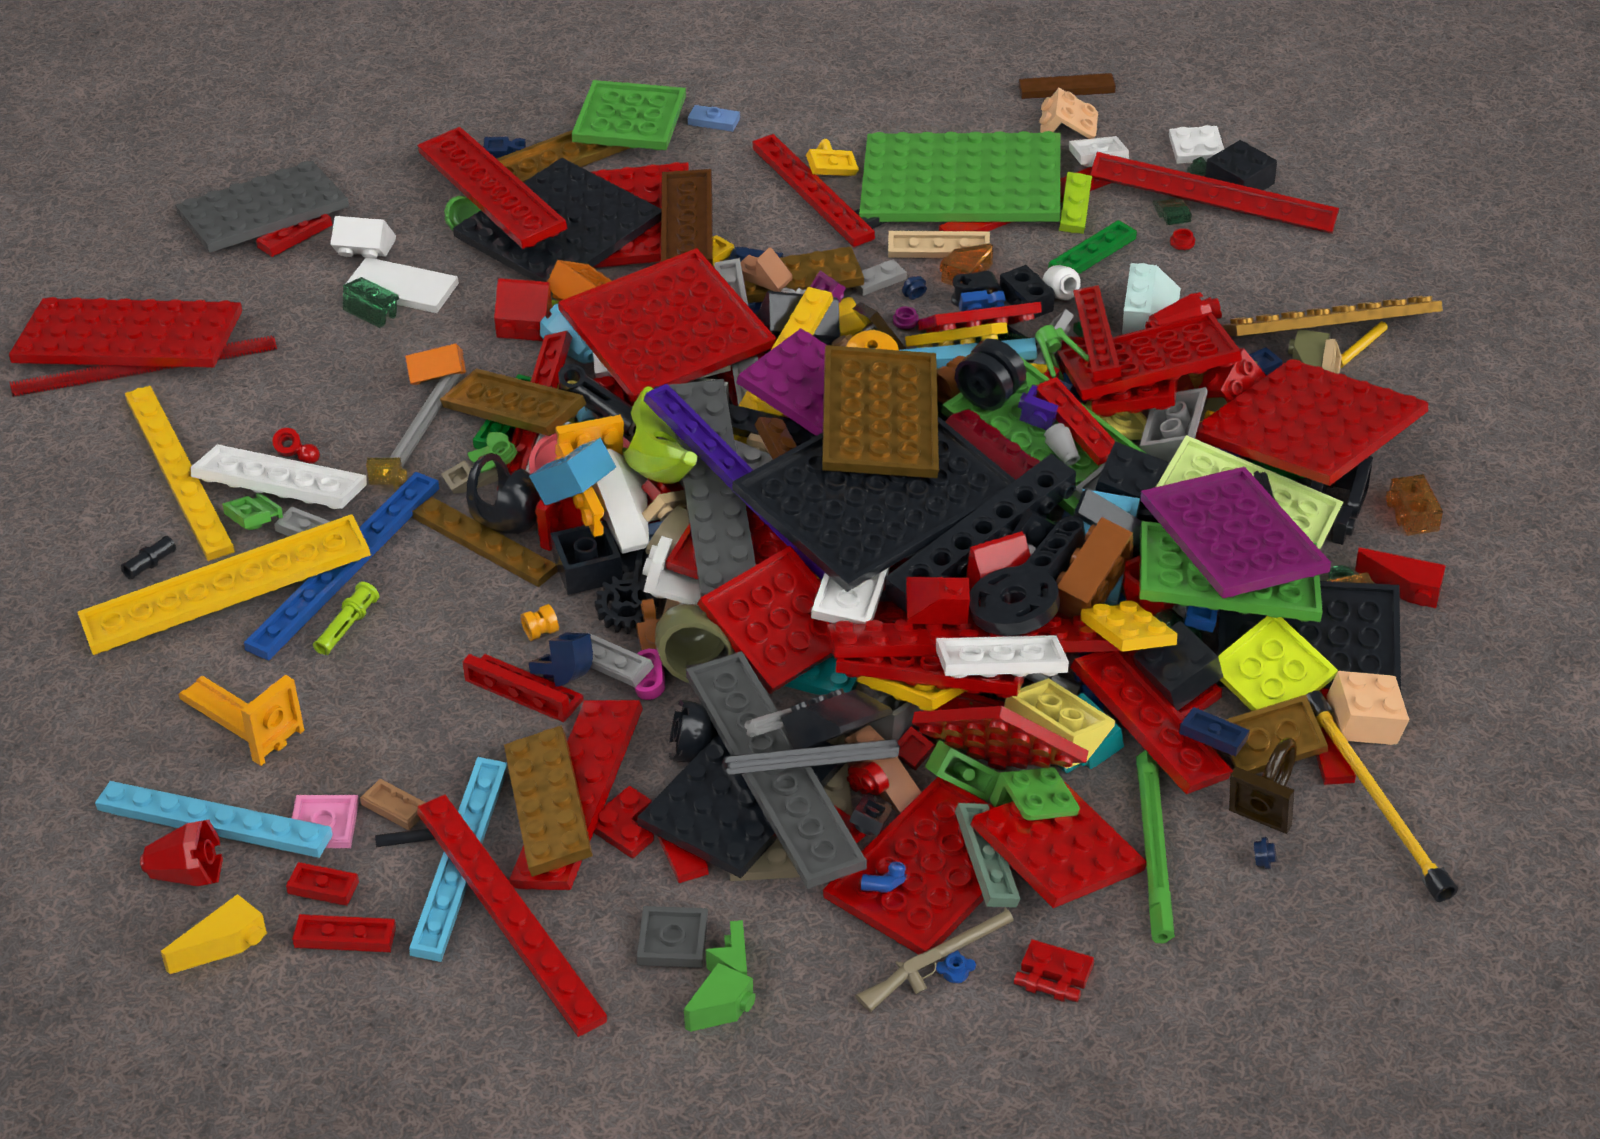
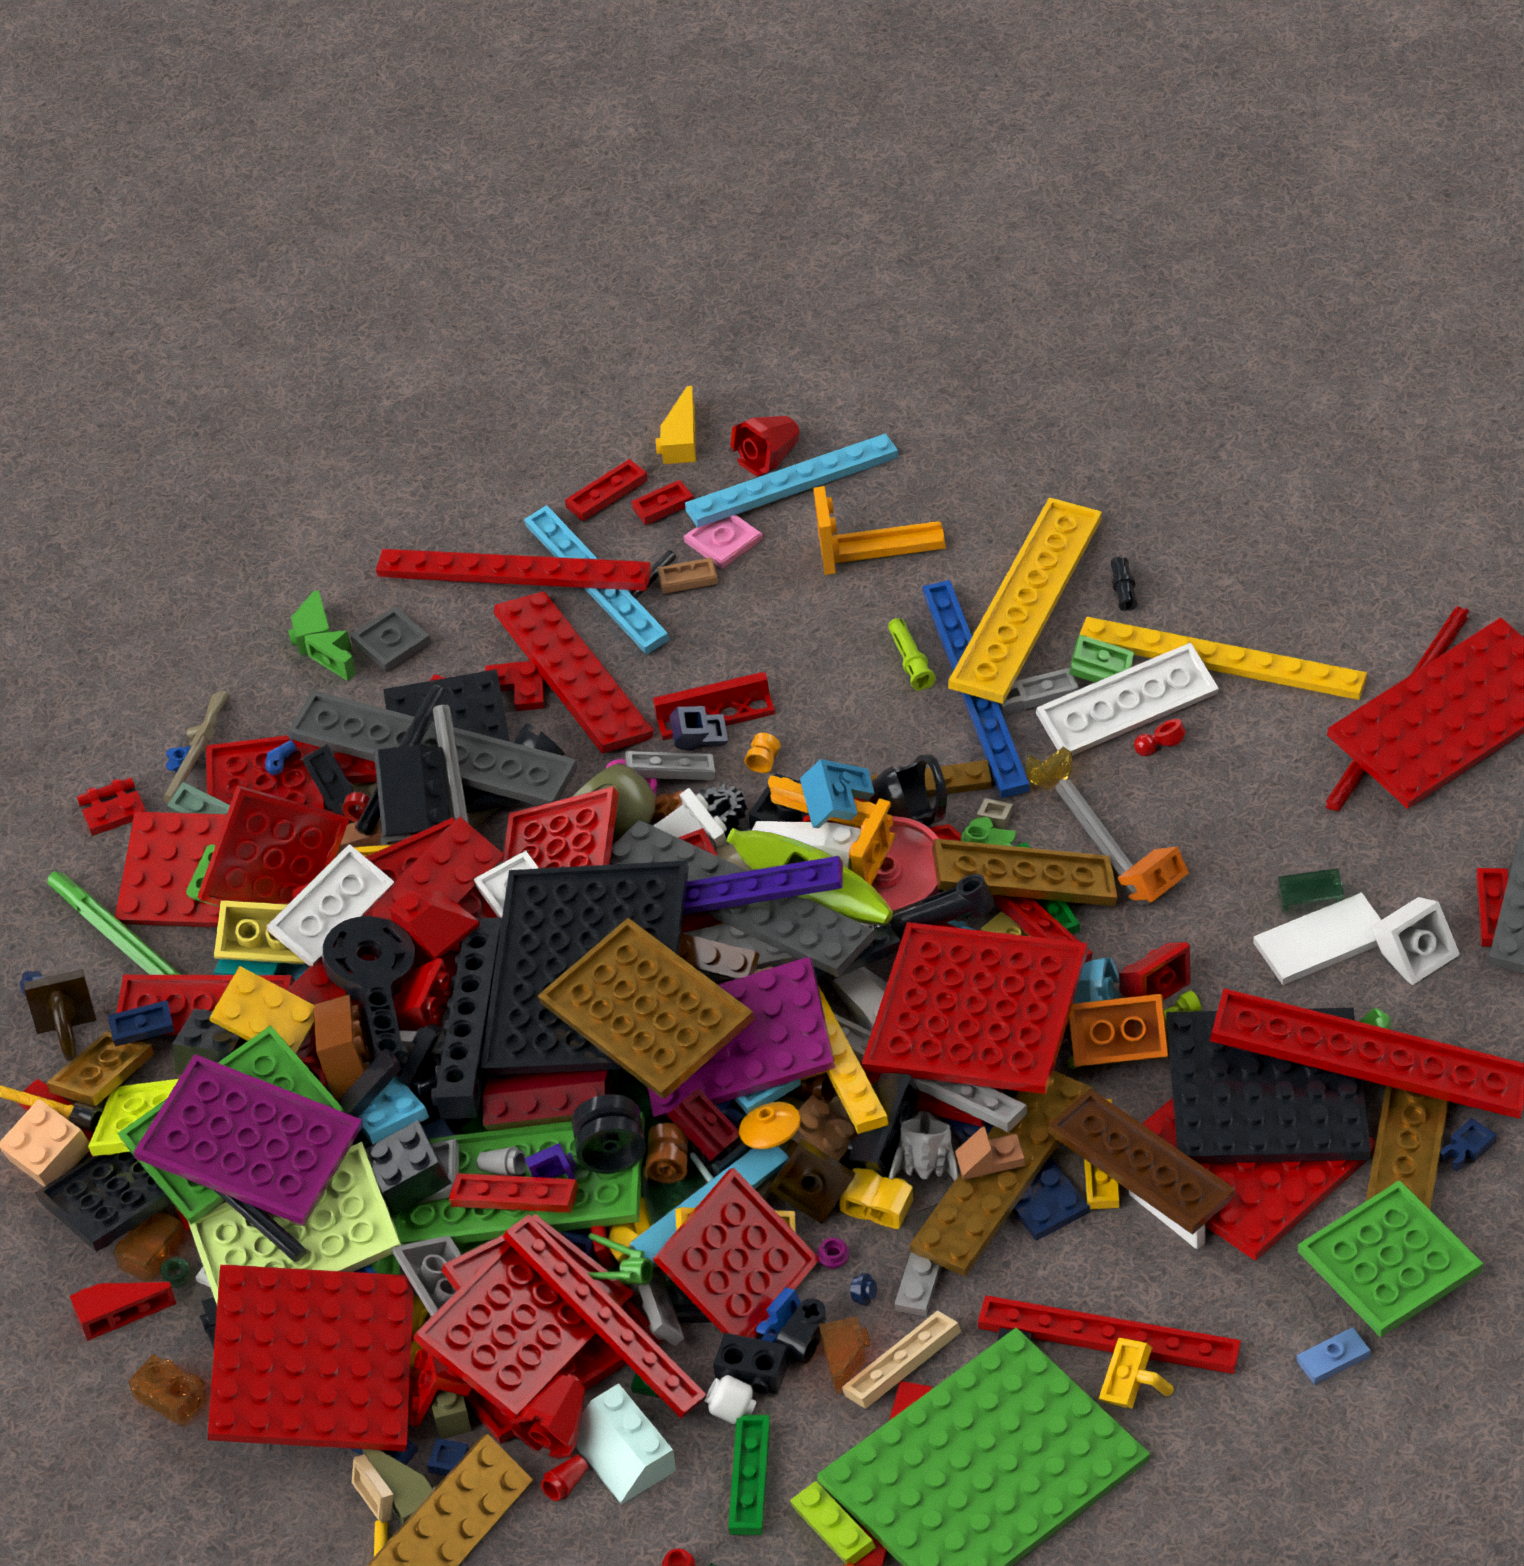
camera: 140 degrees right, 5 degrees up
(547, 801) = (576, 638): pearl gold plate -> none
(826, 283) = (923, 1193): magenta plate -> none

